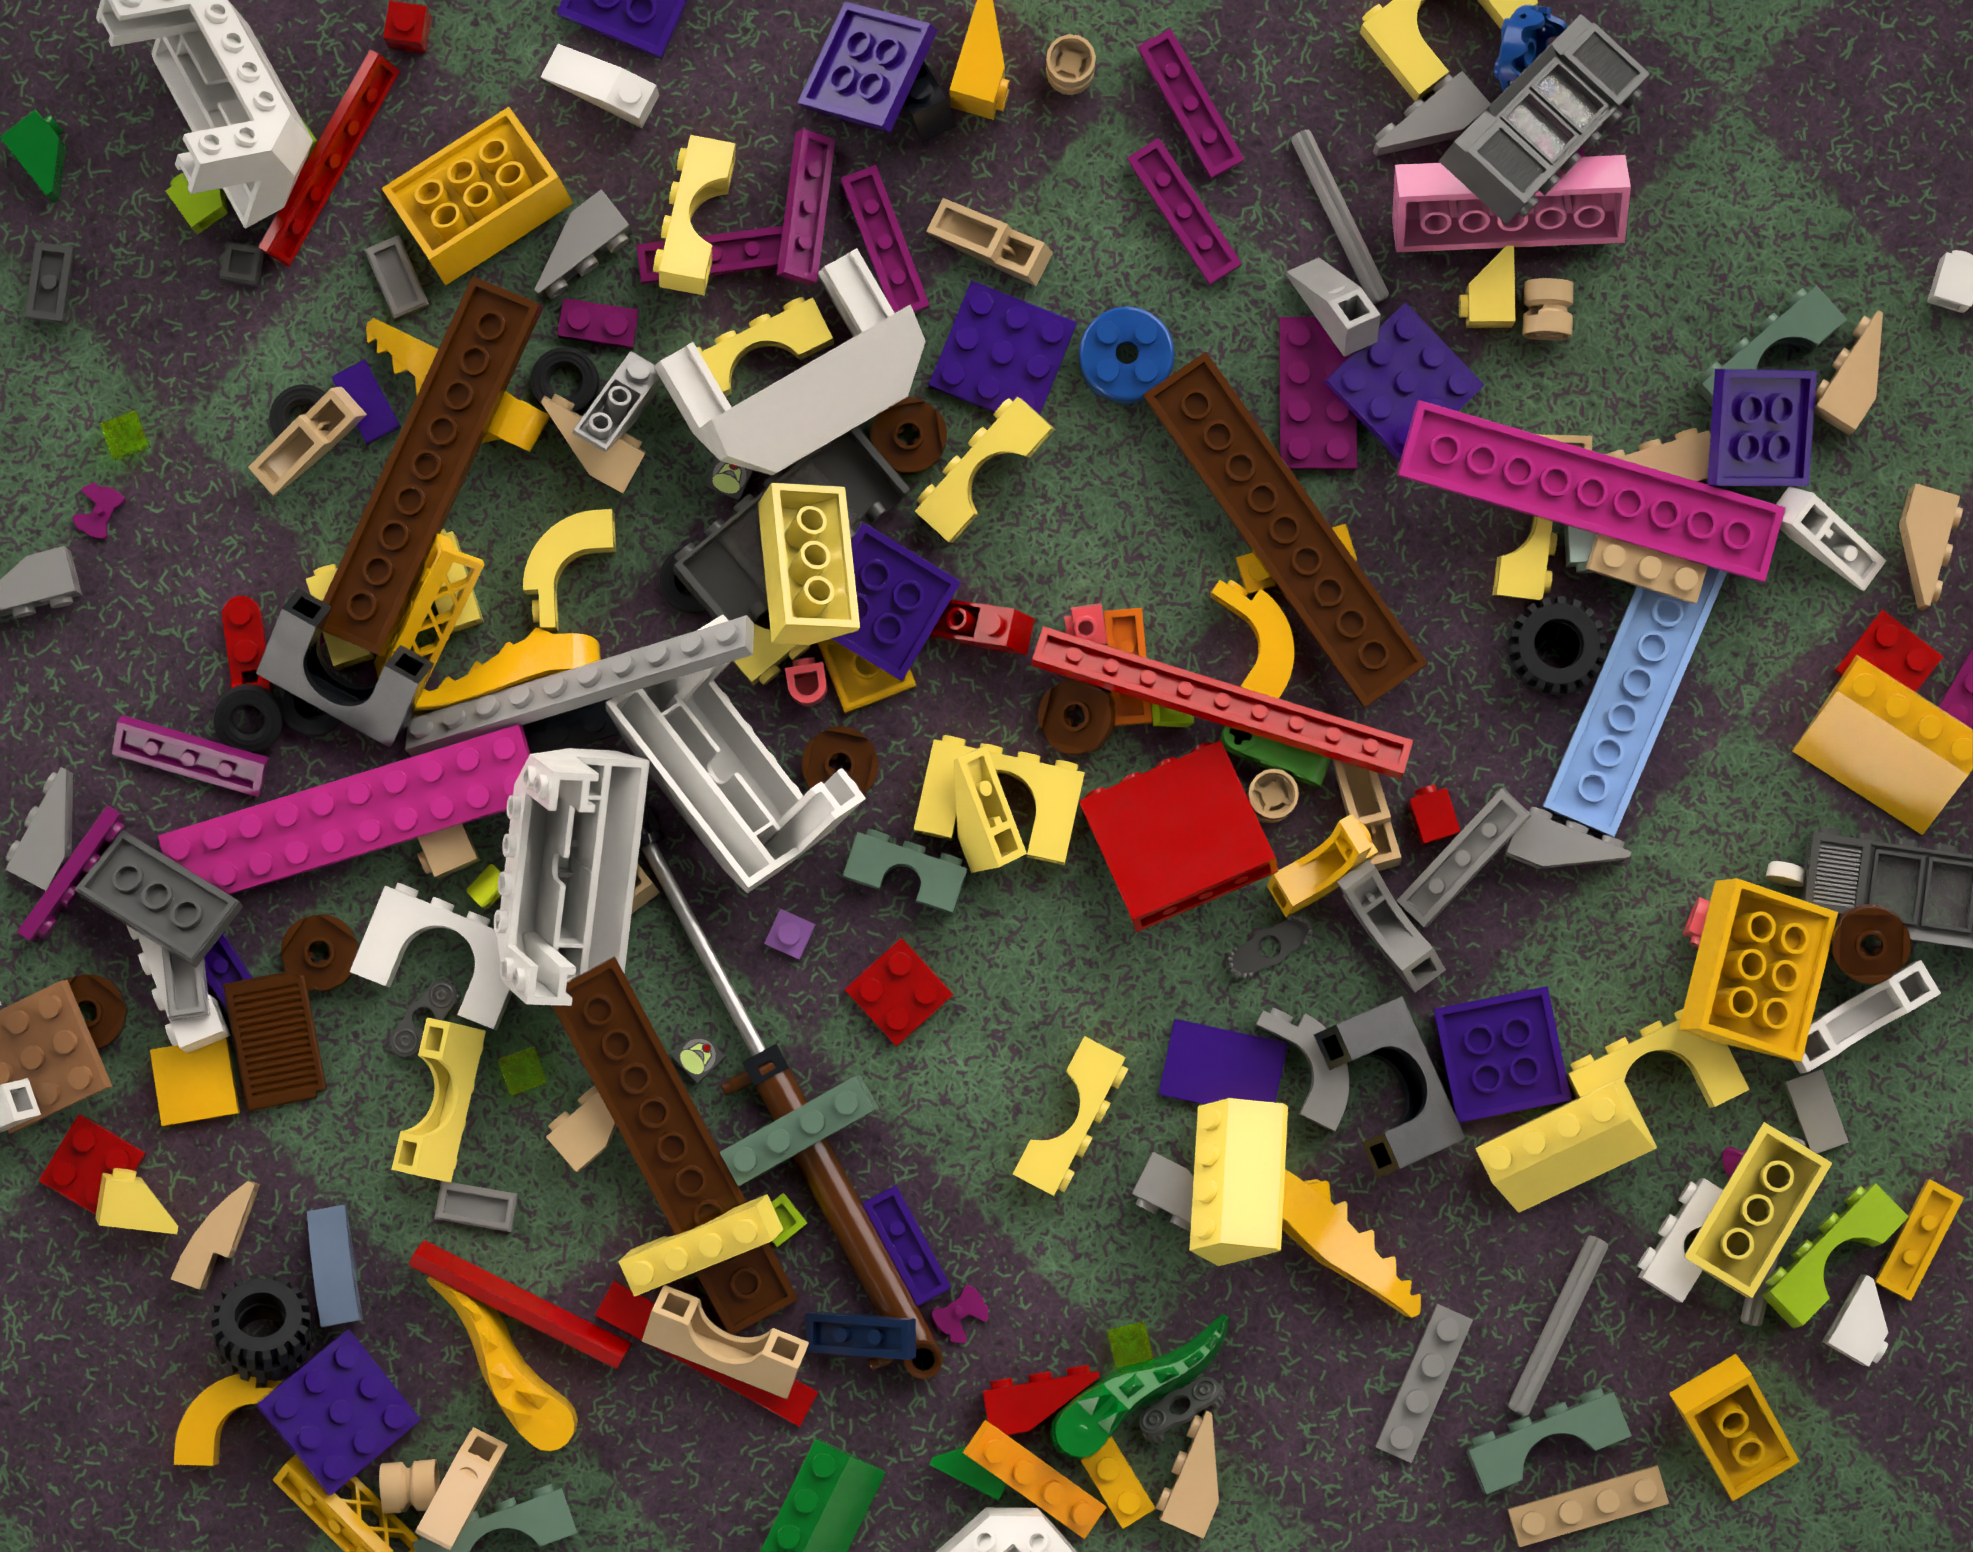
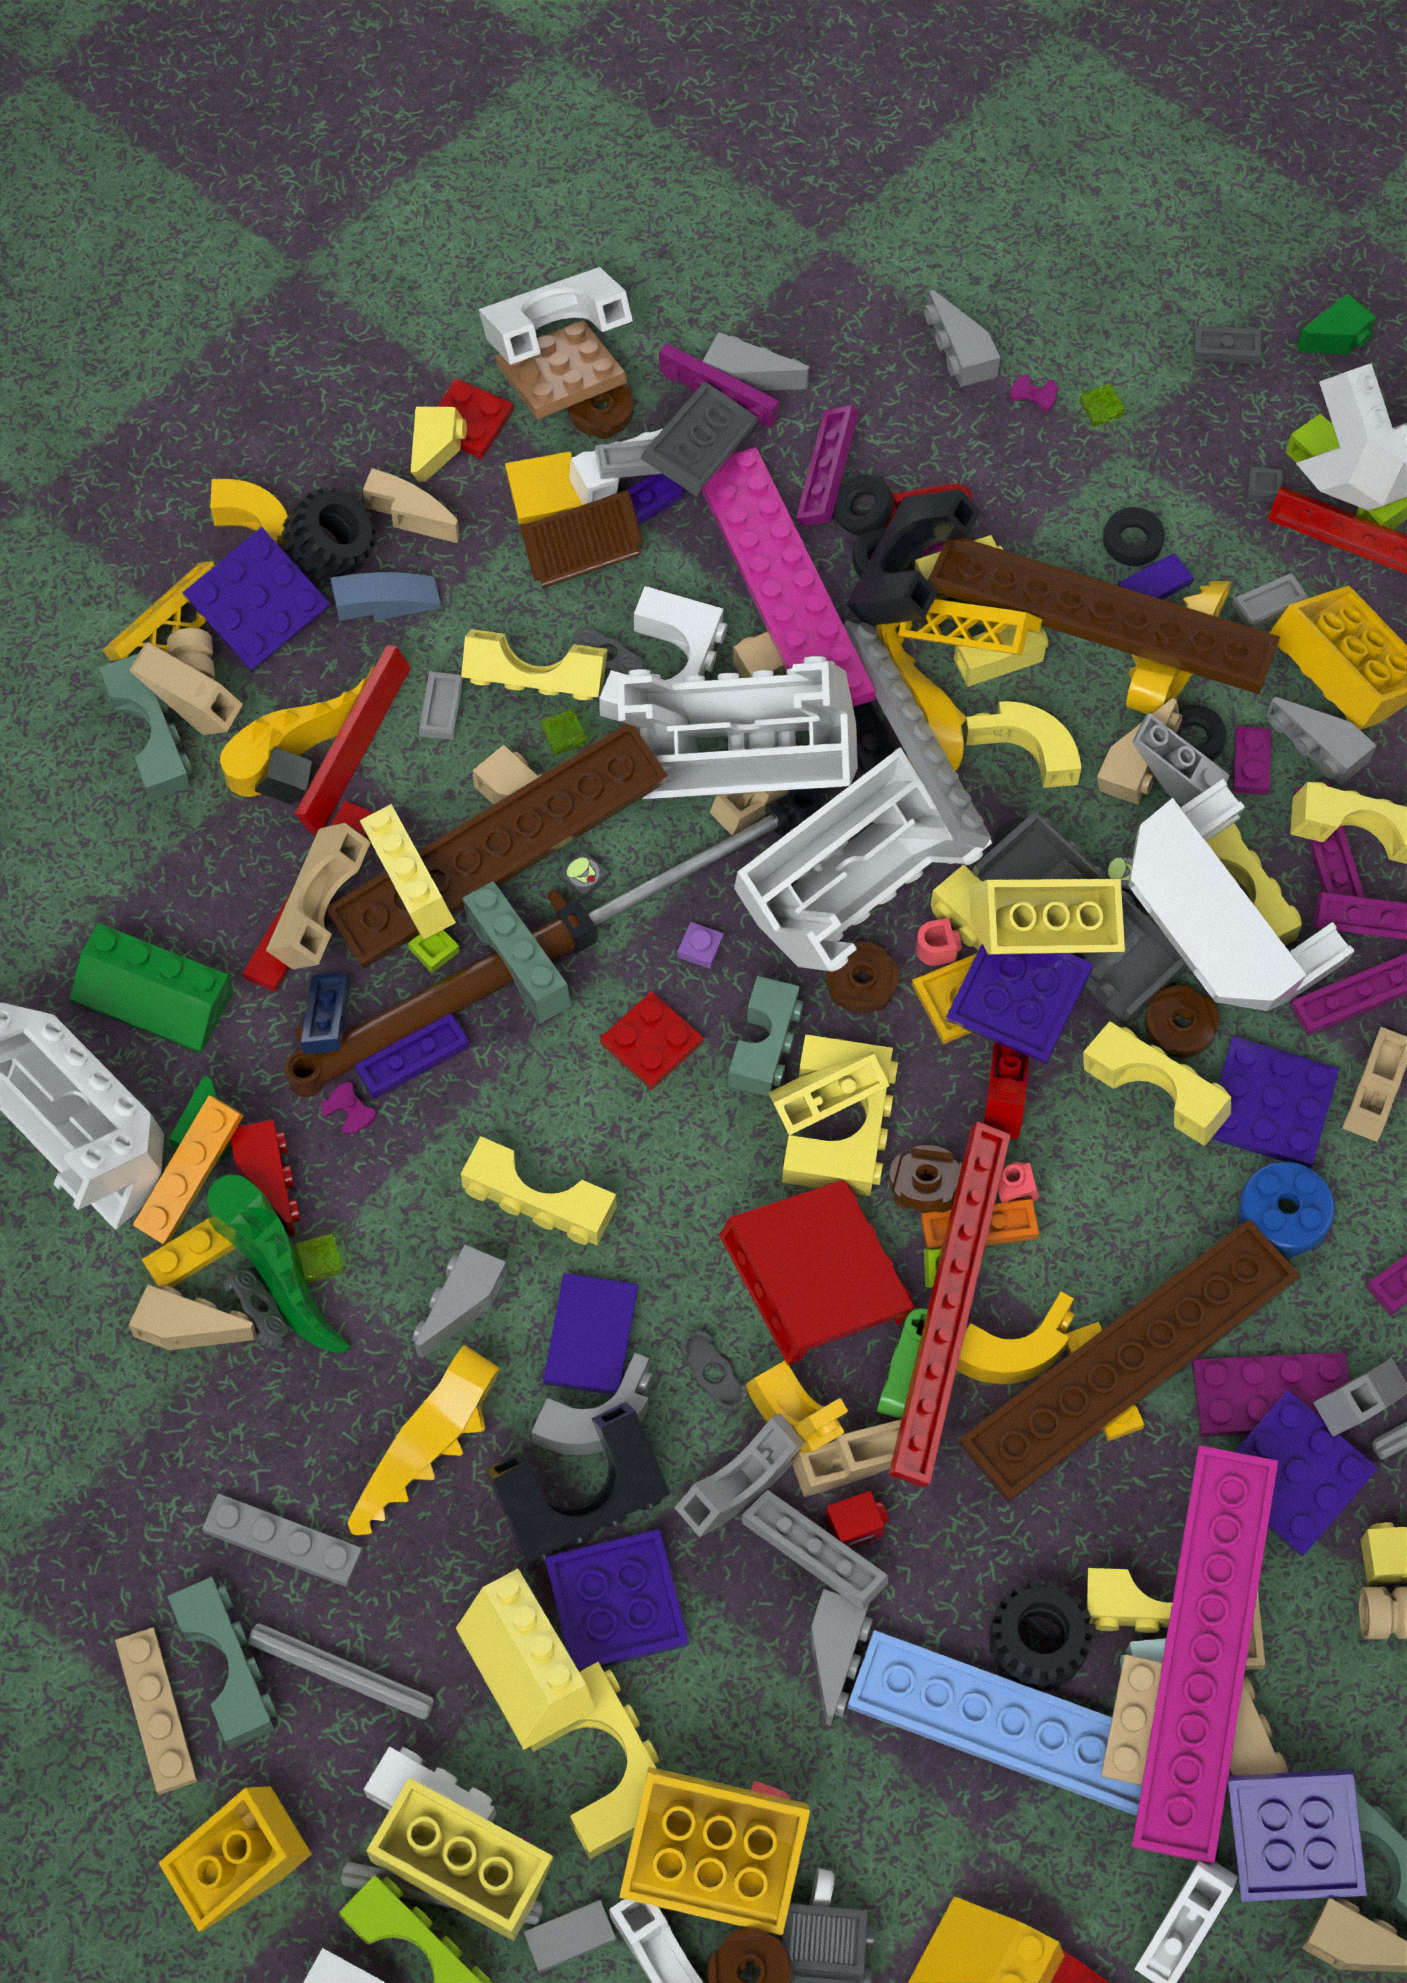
camera: 85 degrees right, 20 degrees down
(307, 440) = (1116, 530): tan slope -> none
(317, 930) = (666, 554): reddish brown plate -> none
(568, 1377) = (285, 776): none -> pearl dark grey panel
(1238, 1180) = (478, 1330): light yellow slope -> none
(1273, 795) = (863, 1361): tan wheel -> none

